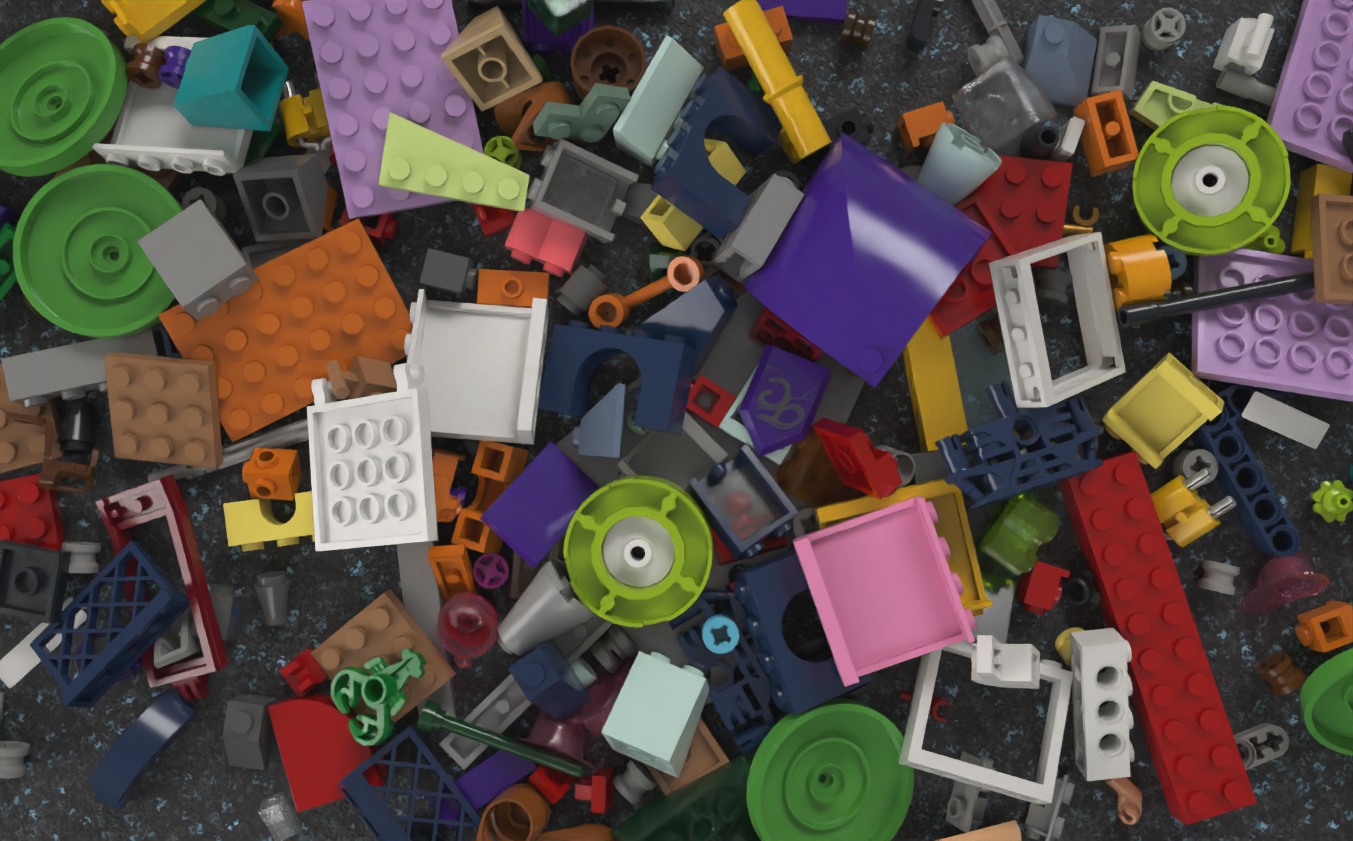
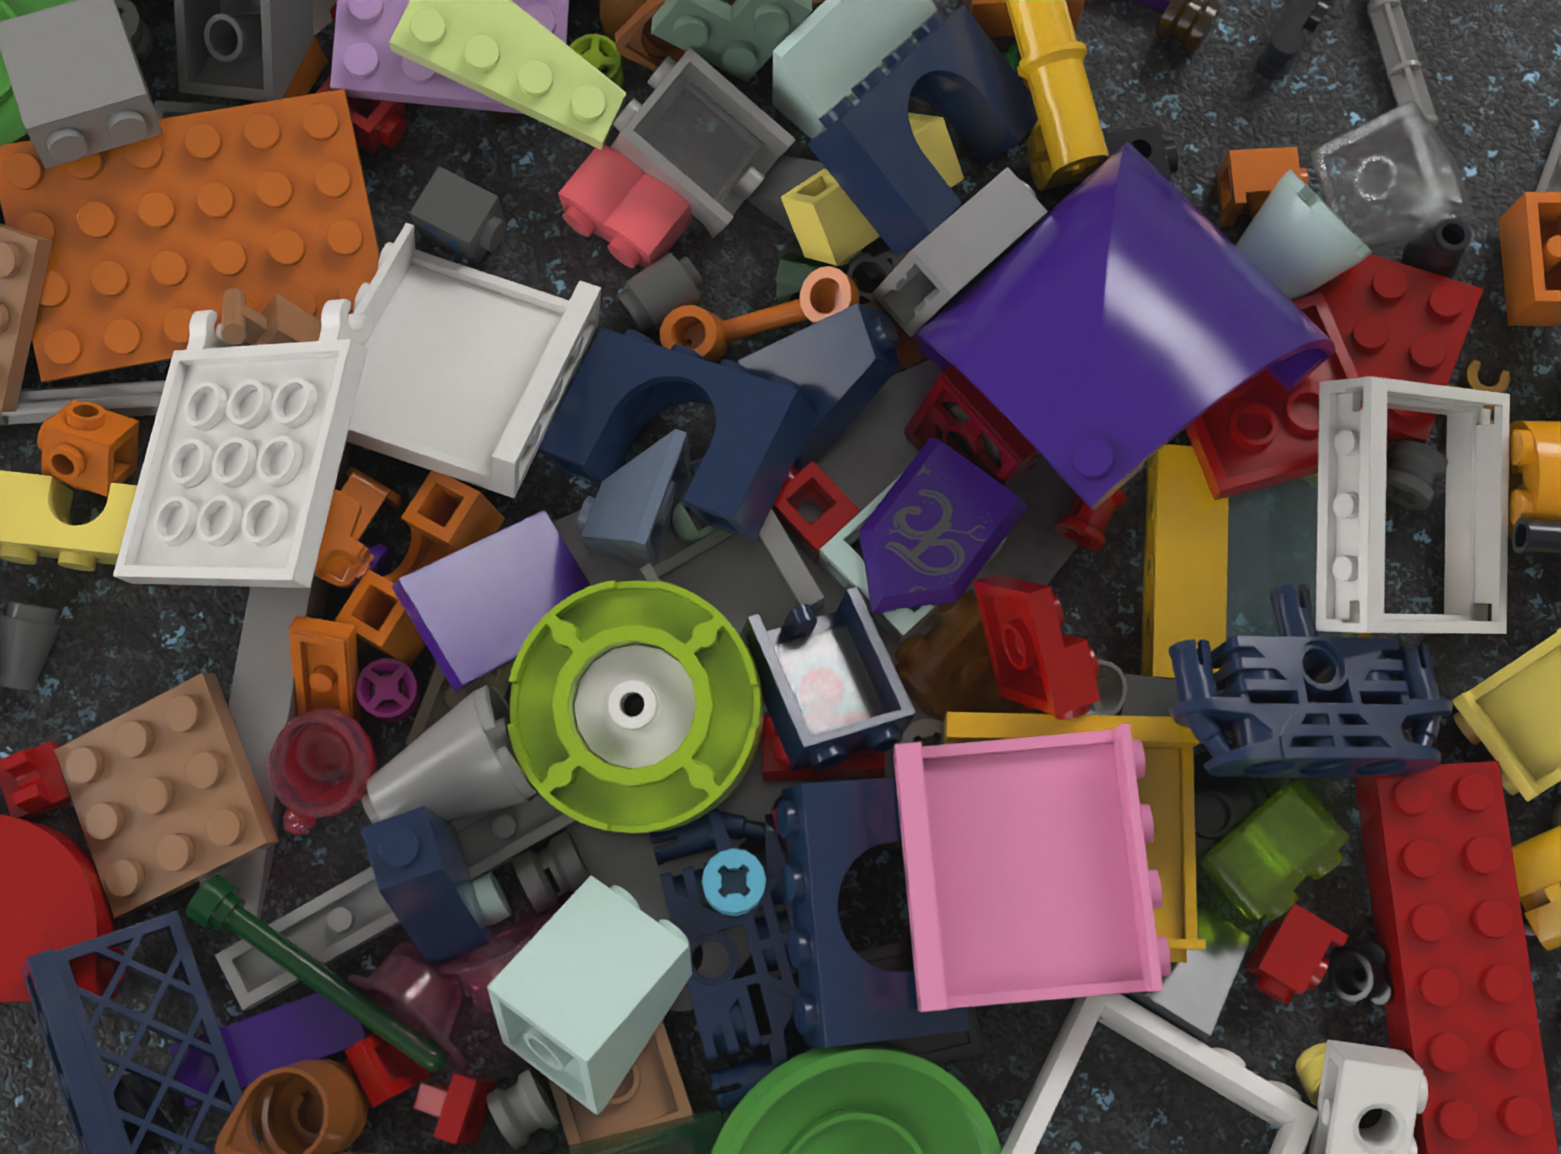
camera: 10 degrees right, 10 degrees down
(379, 691) = (143, 833): green animal -> none
(493, 219) = (553, 154): red tile -> none
(512, 287) = (552, 263): orange plate -> none
(935, 702) = (1061, 1113): red hand -> none
(986, 55) = (1372, 101): light grey wheel -> none
(991, 334) = (1297, 512): dark brown wheel -> none
(1005, 664) = (1204, 1059): white brick -> none
(1060, 58) = (1495, 134): sand blue slope -> none
(1068, 139) = (1484, 253): white tile -> none

